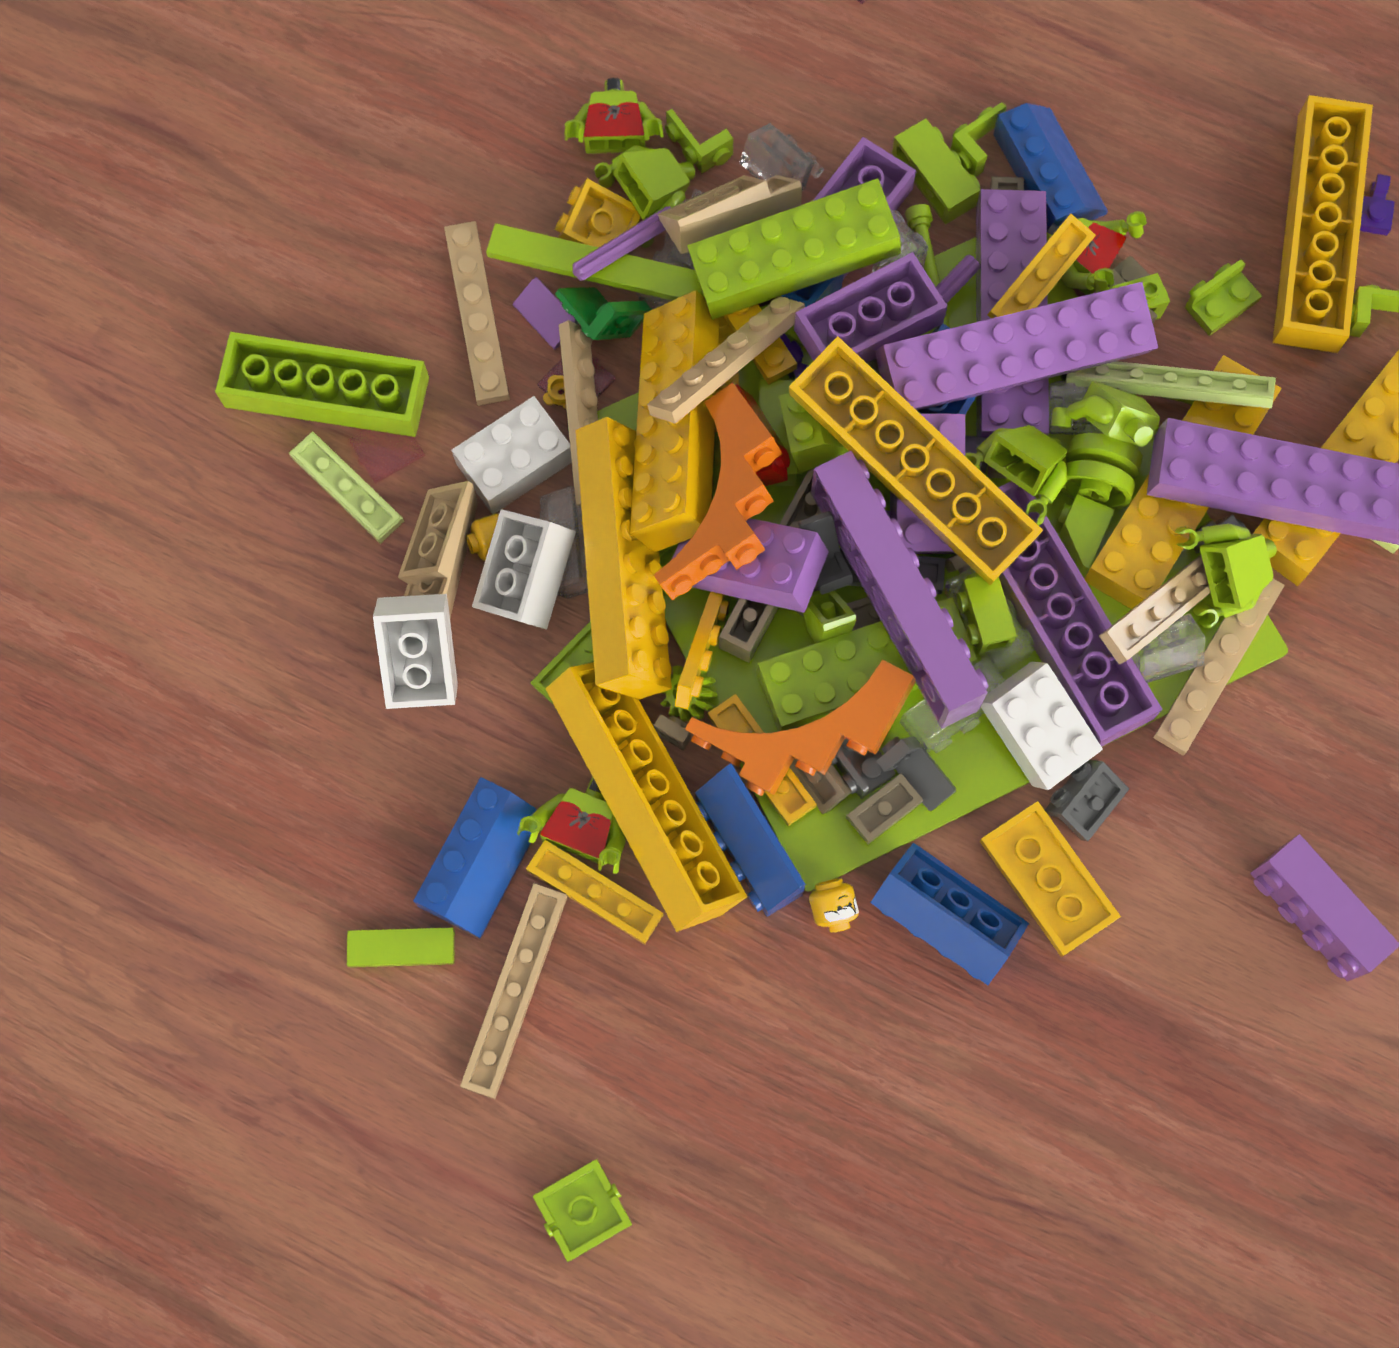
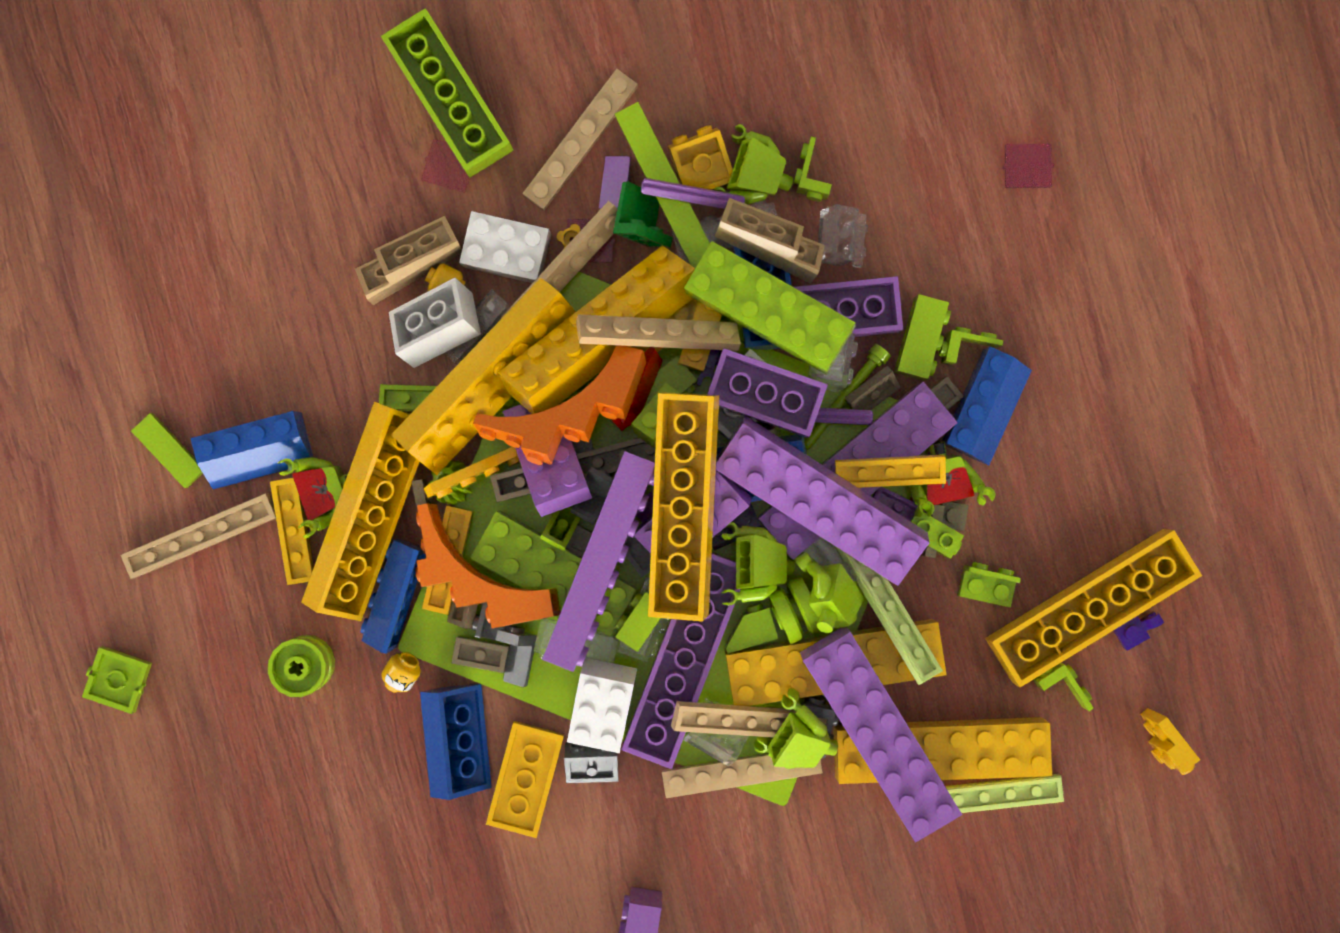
camera: 45 degrees right, 15 degrees up
(346, 487) = (403, 166): yellowish green tile -> none
(415, 651) = (329, 306): white brick -> none
(613, 121) = (778, 107): torso -> none
(743, 977) = (287, 673): none -> lime wheel
(949, 242) = (873, 390): none -> dark tan plate

